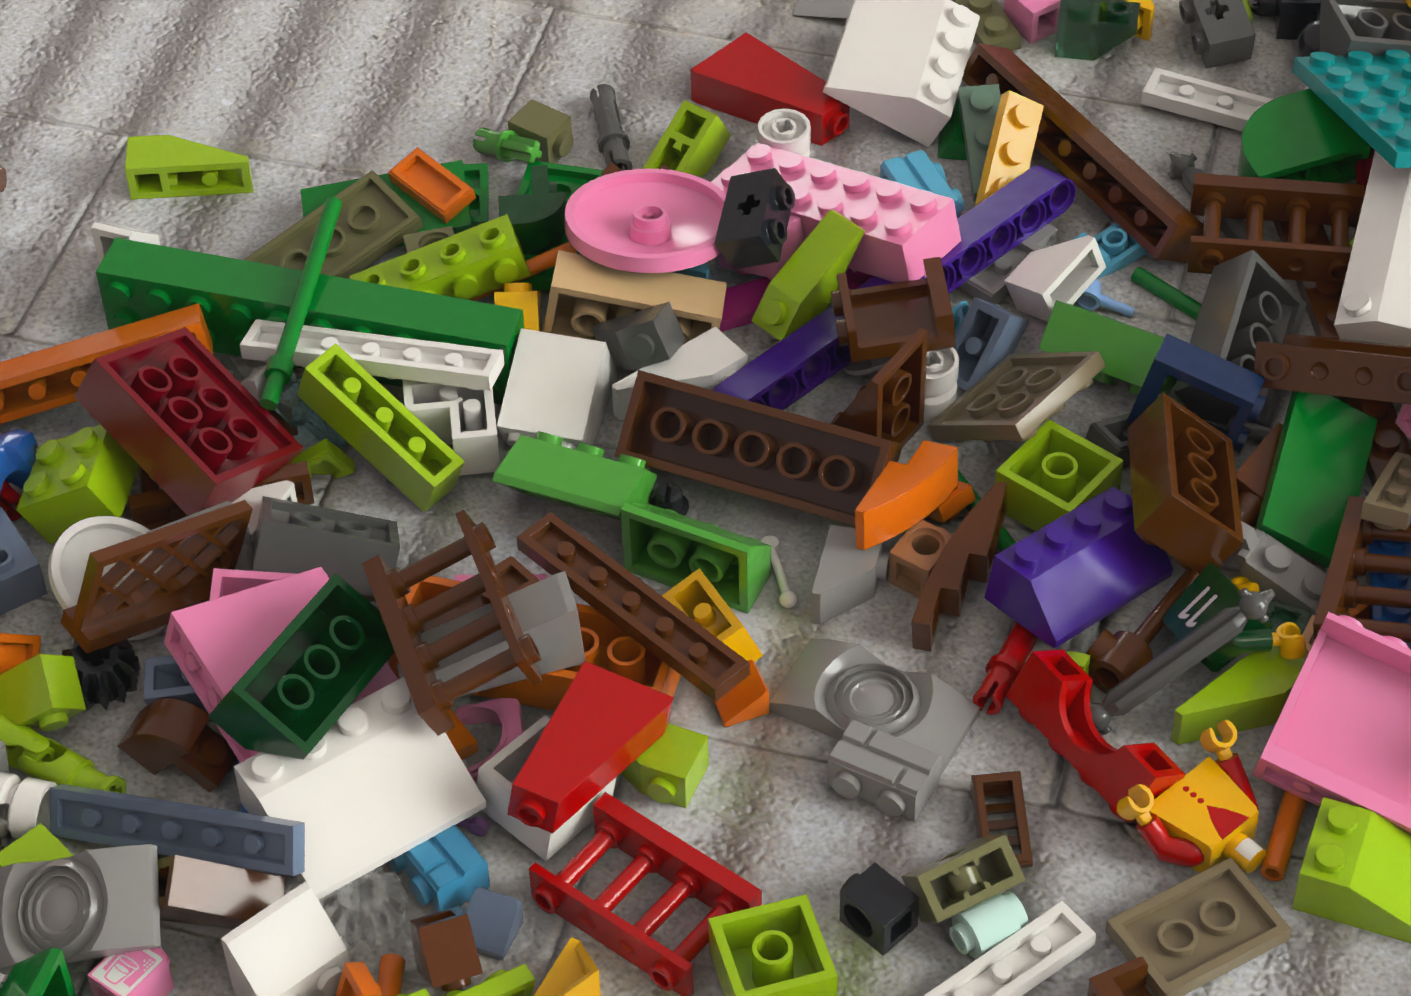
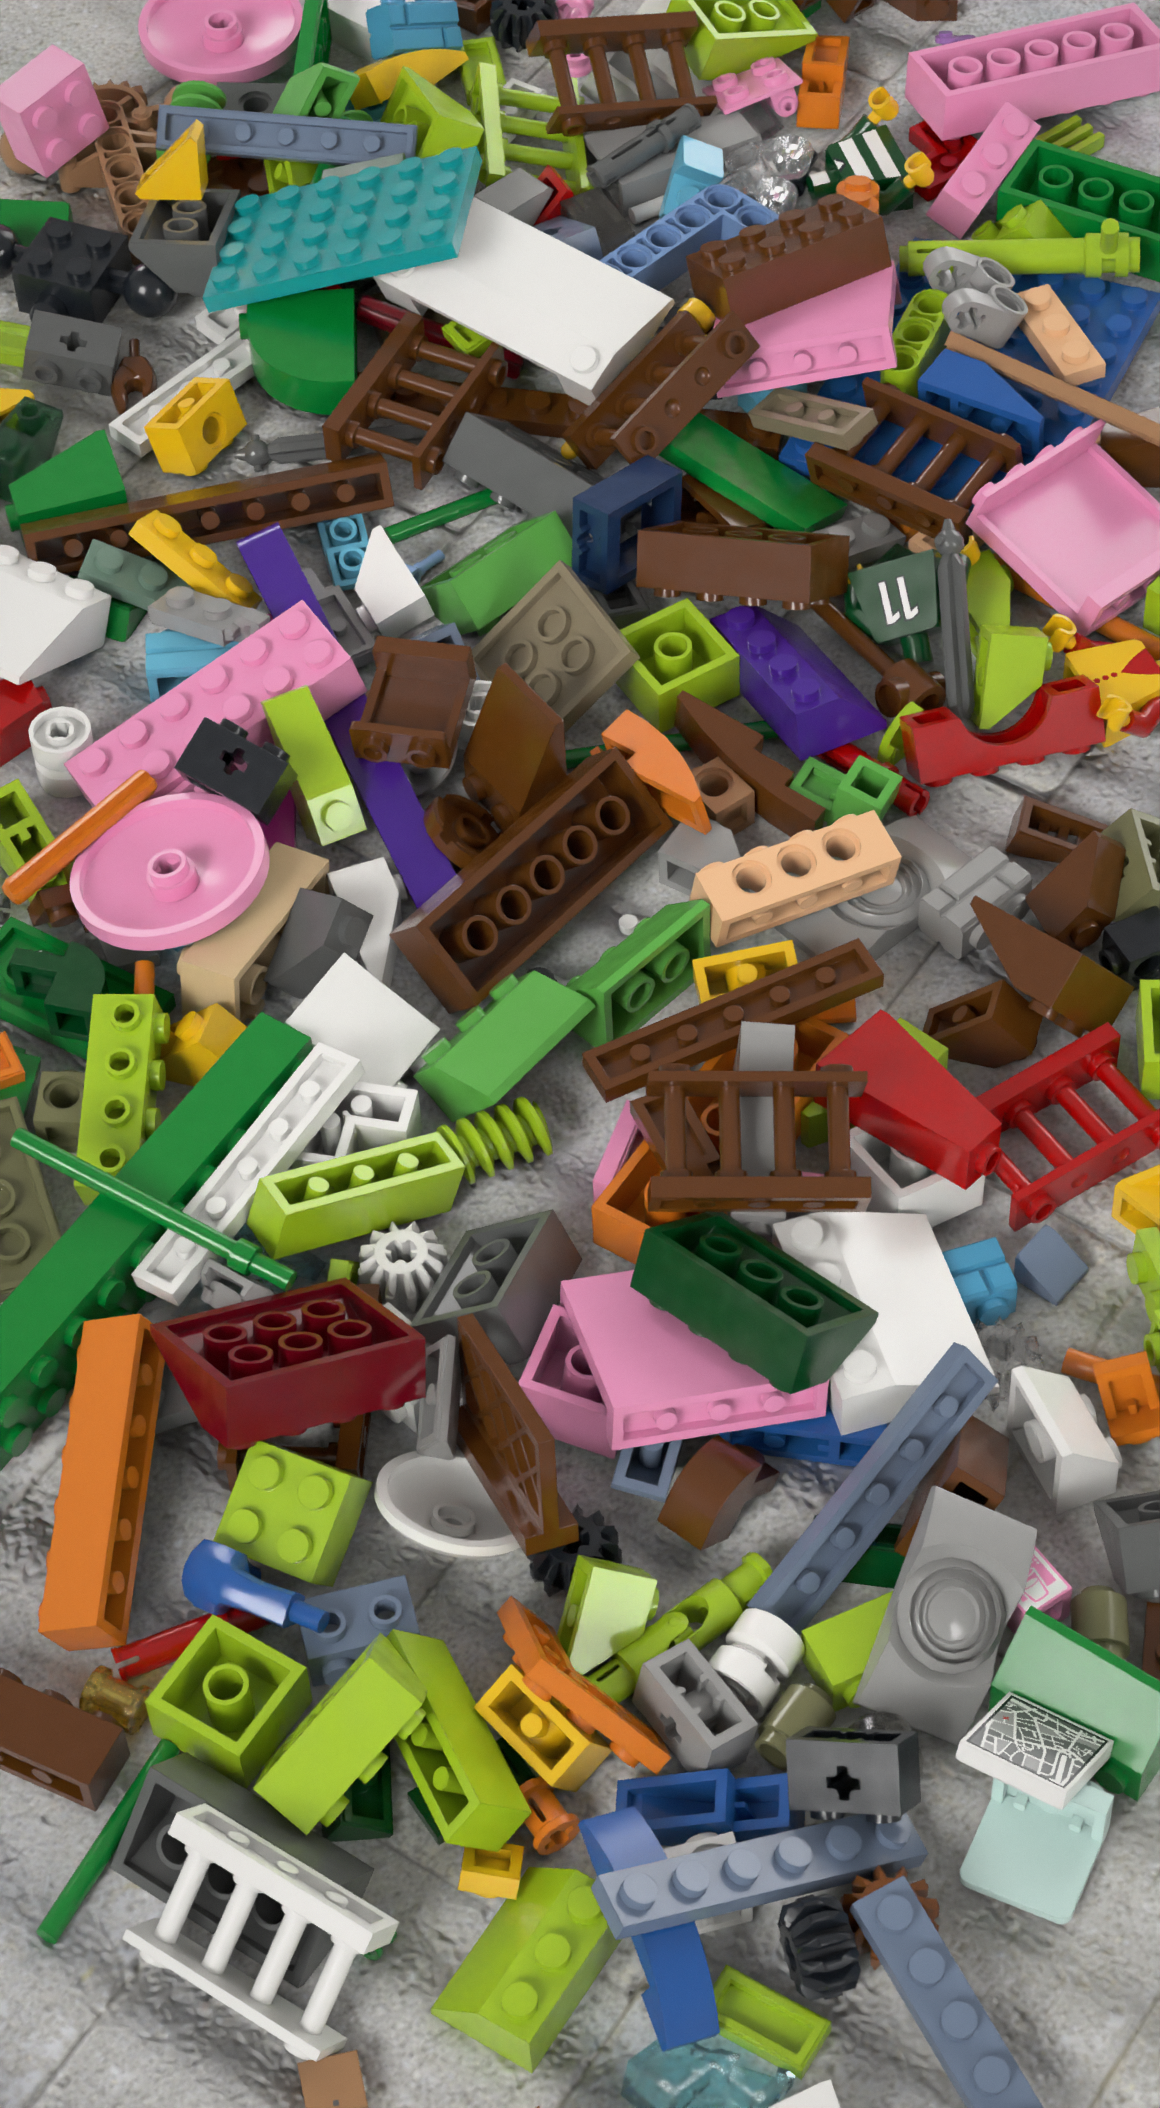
camera: 70 degrees left, 5 degrees up
(349, 487) = (402, 1263): none -> white gear
(445, 949) = (1105, 1287): reddish brown slope -> none
(489, 504) = (498, 1137): none -> lime piece
(652, 157) = (78, 836): none -> orange axle
(735, 813) = (985, 1026): none -> reddish brown slope
(802, 390) = (459, 828): none -> reddish brown tile
(806, 826) = (1059, 979): none -> reddish brown slope
(868, 666) = (859, 840): none -> light nougat brick
(911, 836) = (1081, 892): none -> reddish brown slope
(954, 170) = (205, 616): none -> light grey hinge
(959, 638) = (861, 790): none -> bright green brick
(1077, 69) = (69, 483): none -> green slope
(1158, 708) = (1007, 670): none -> lime slope
(1196, 103) = (195, 426): none -> yellow brick
(1226, 70) = (132, 375): none -> reddish brown hand

